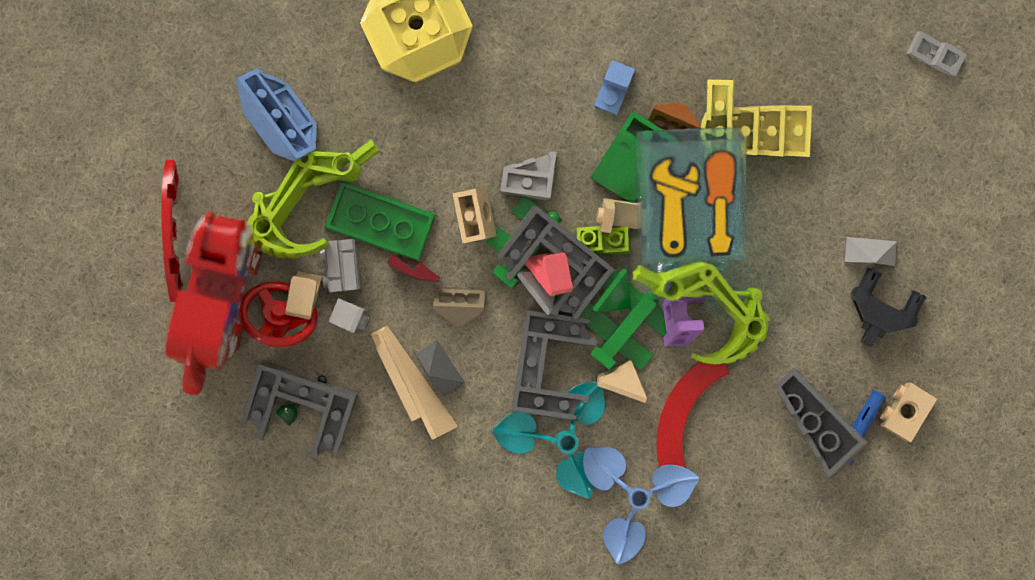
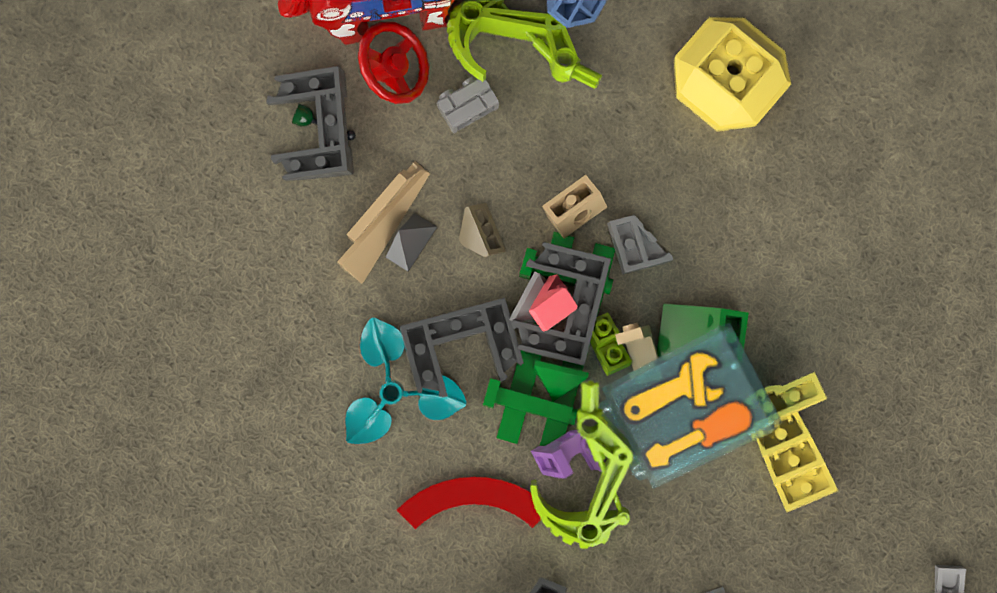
camera: 65 degrees right, 5 degrees down
(303, 295) = (423, 78): tan slope -> none
(349, 316) = (421, 132): light grey slope -> none
(380, 221) = (527, 122): green tile -> none
(420, 271) = (495, 179): dark red slope -> none
(614, 87) = (762, 288): medium blue slope -> none
(623, 380) = (477, 424): tan slope -> none
(671, 483) = (396, 519): medium blue plant -> none
(673, 117) = (761, 357): dark orange slope -> none

